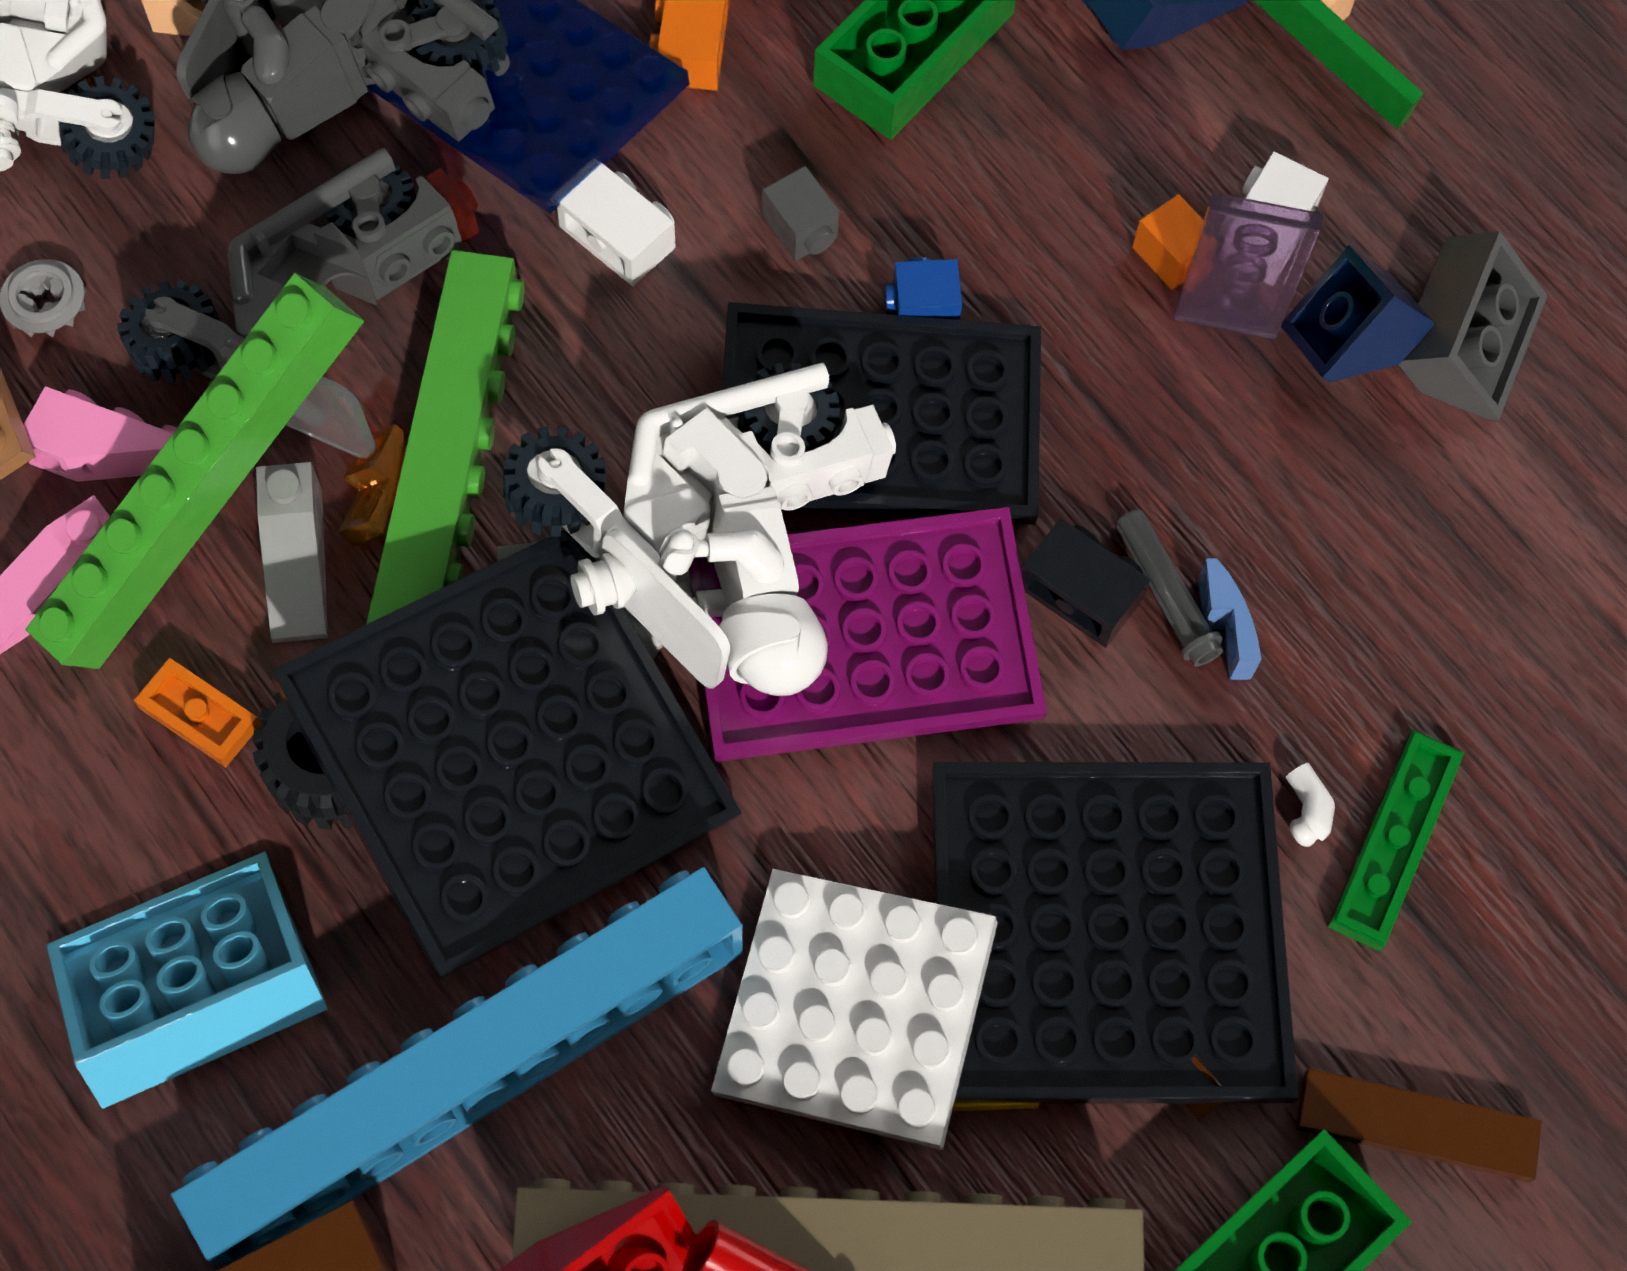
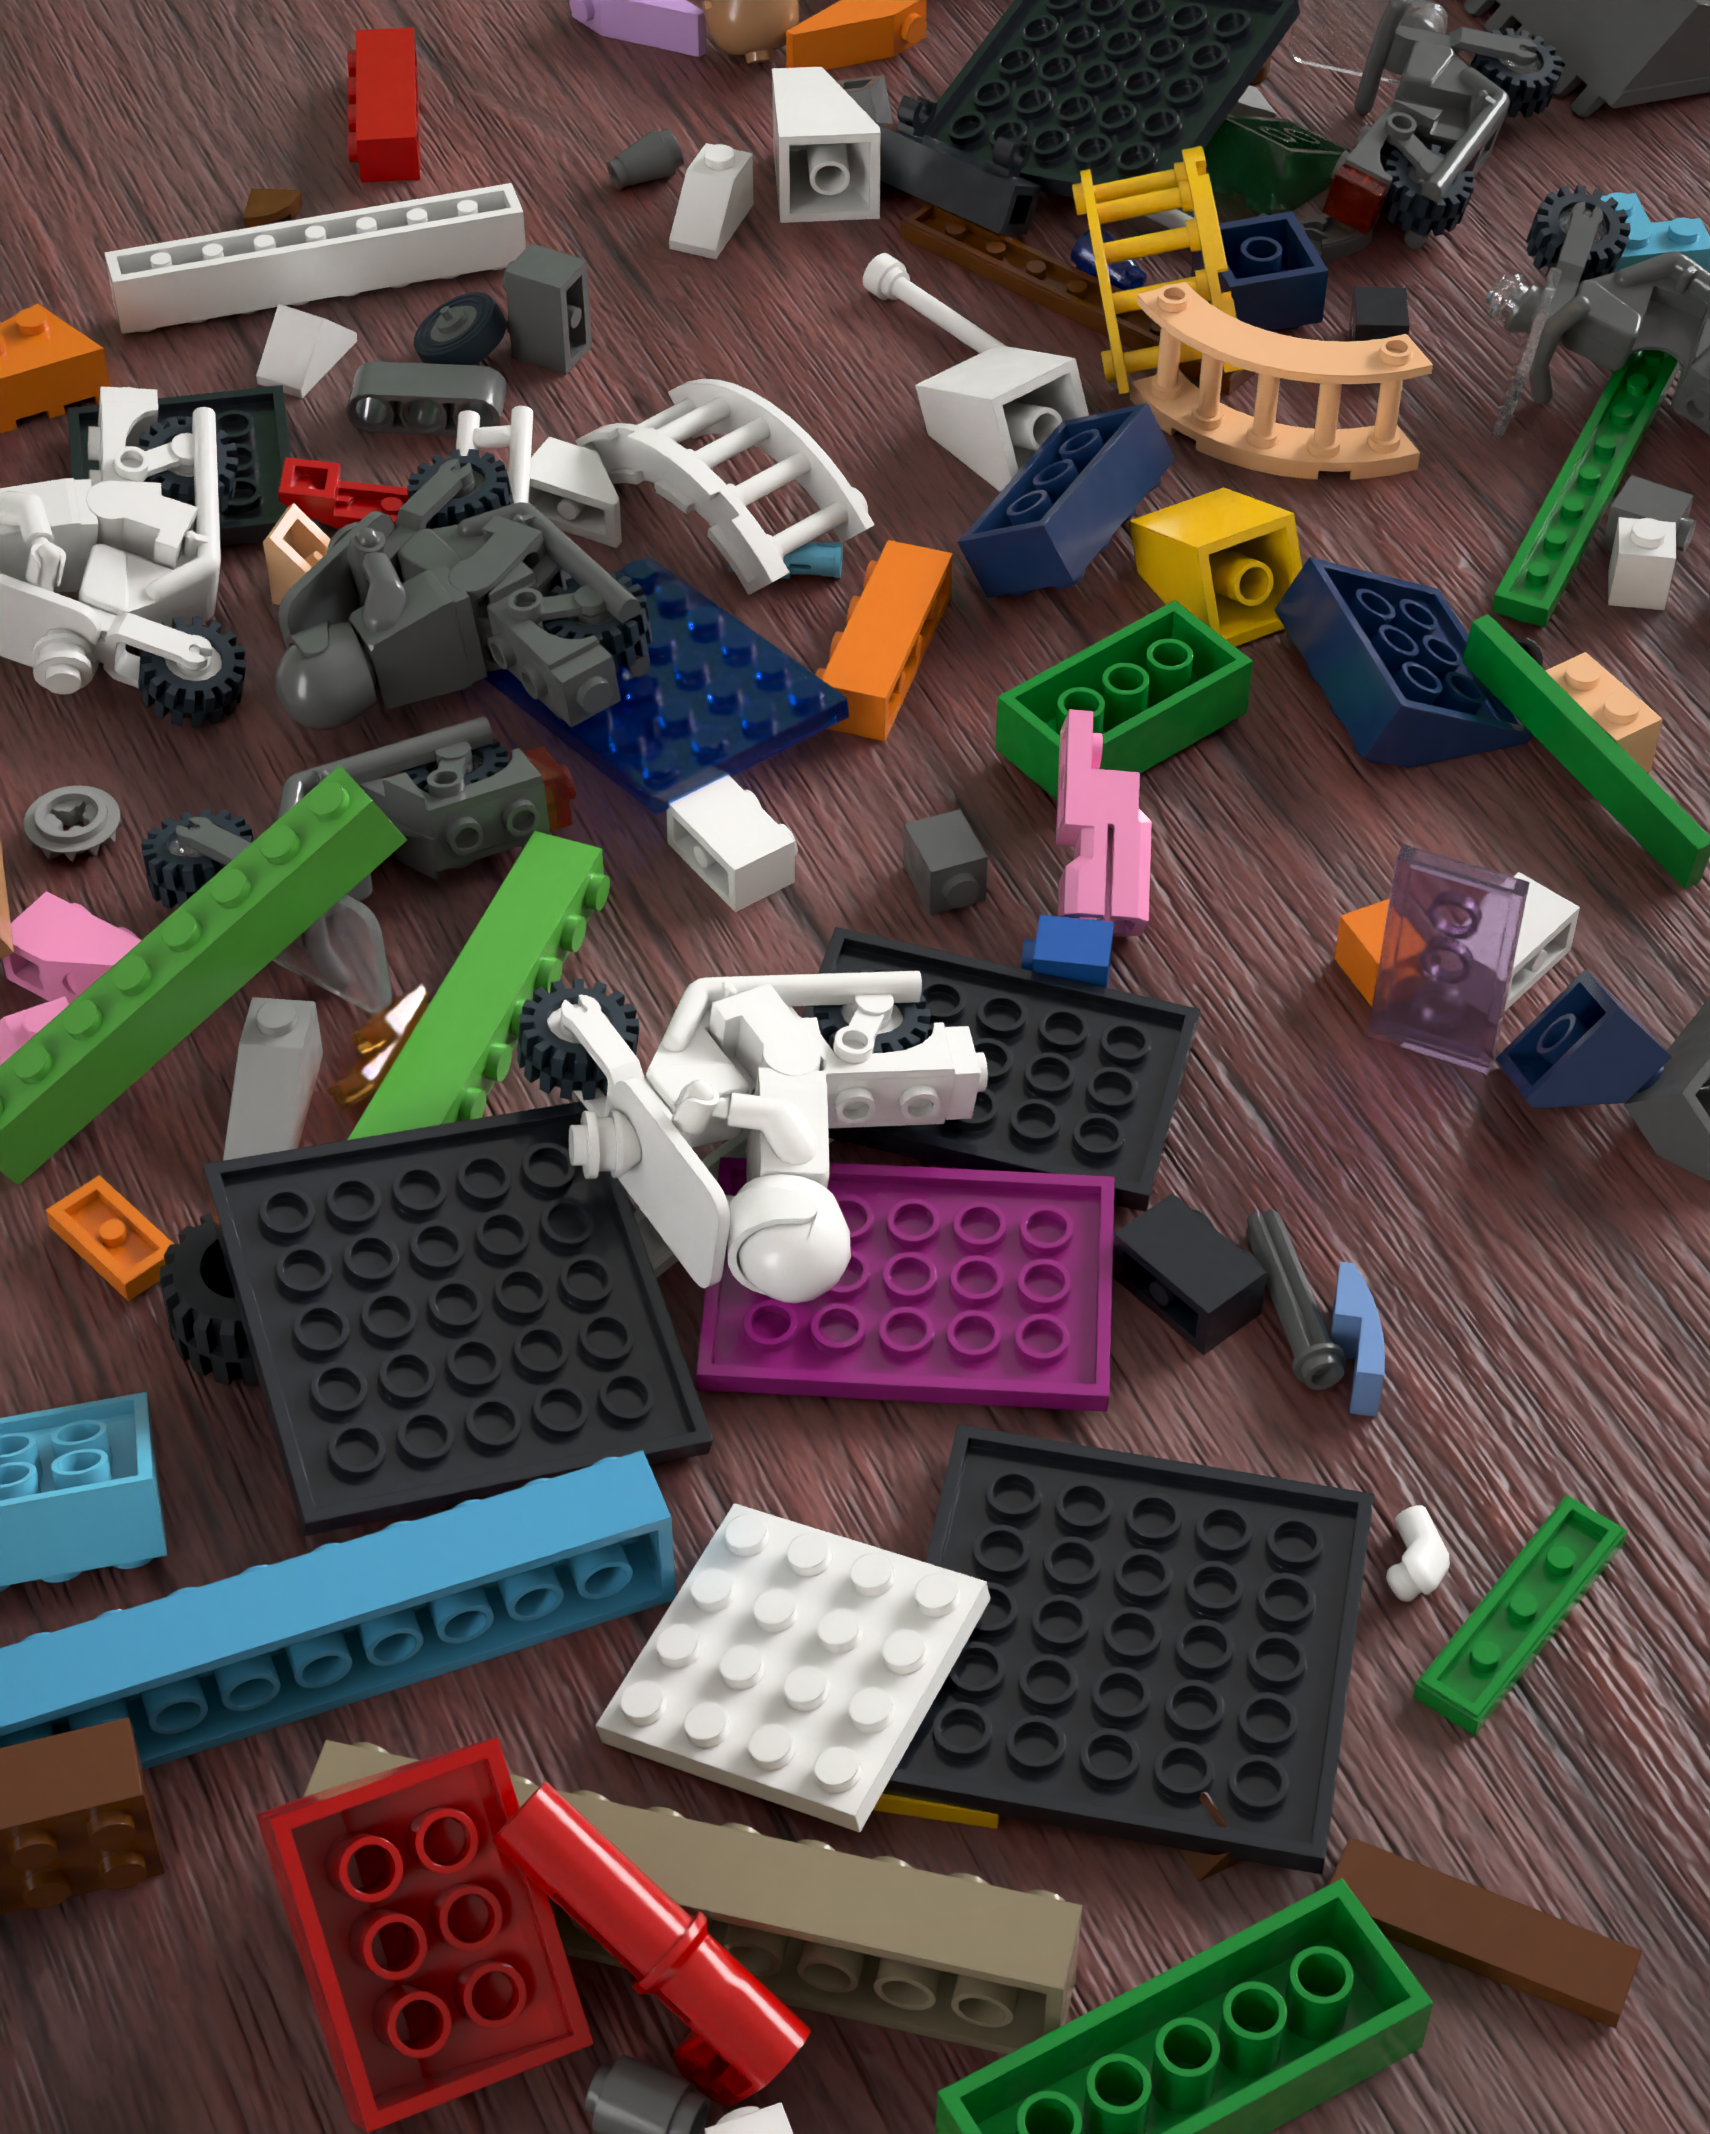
camera: 15 degrees right, 20 degrees down
(937, 174) = (1108, 832): none -> bright pink plate

